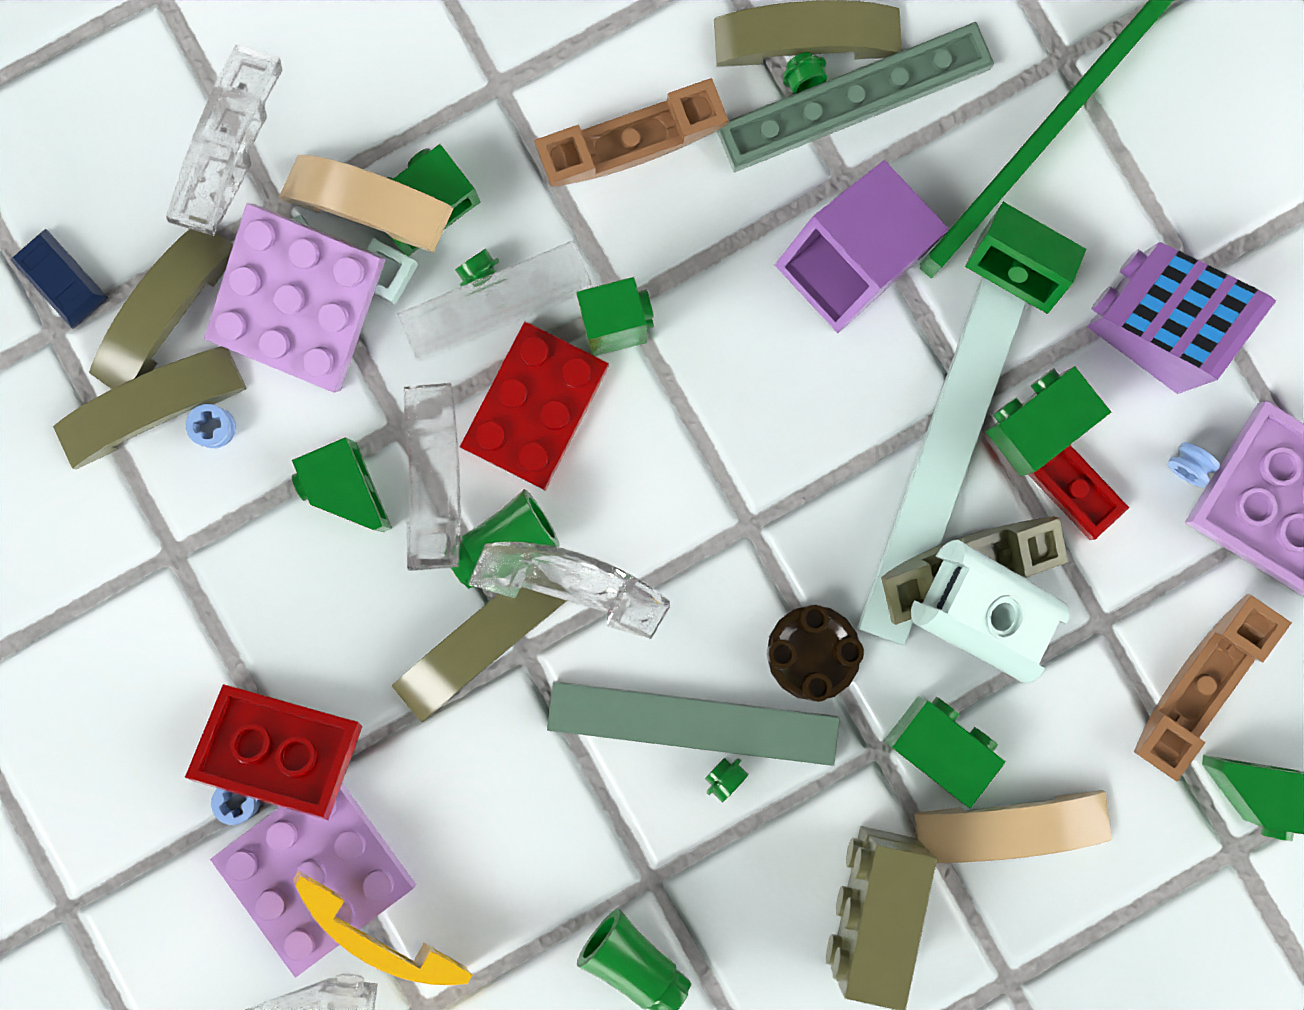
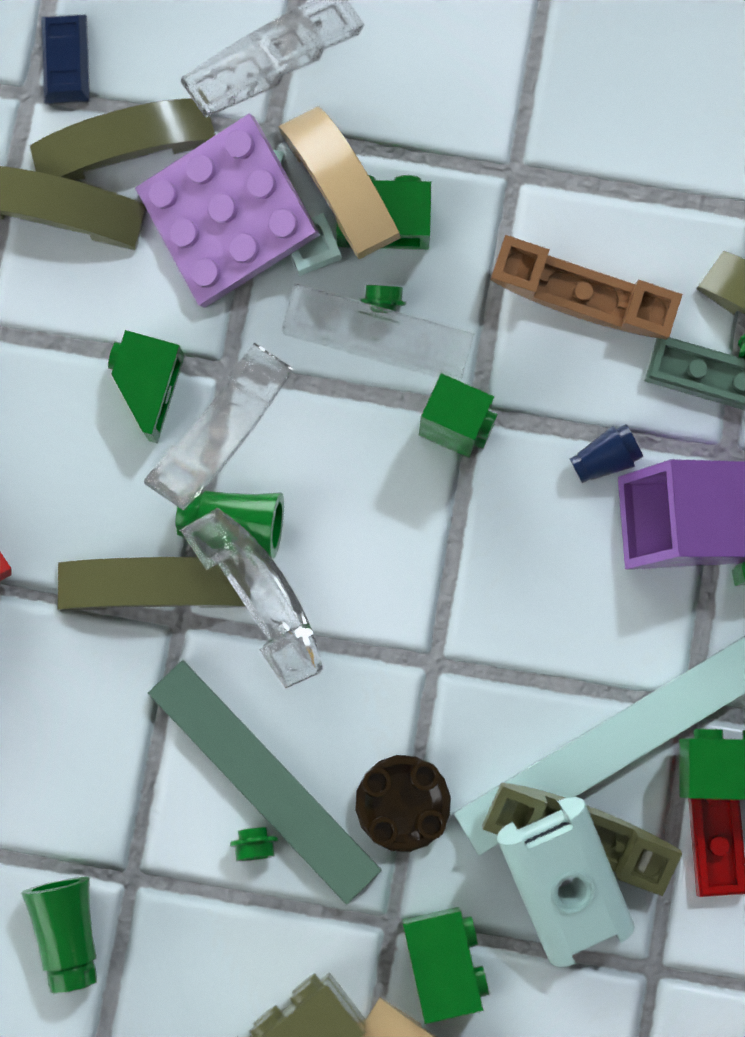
camera: 40 degrees right, 5 degrees down
(200, 416) = (83, 243): light blue bush -> none
(534, 405) = (342, 437): red plate -> none
(754, 252) = (607, 454): none -> dark blue cone

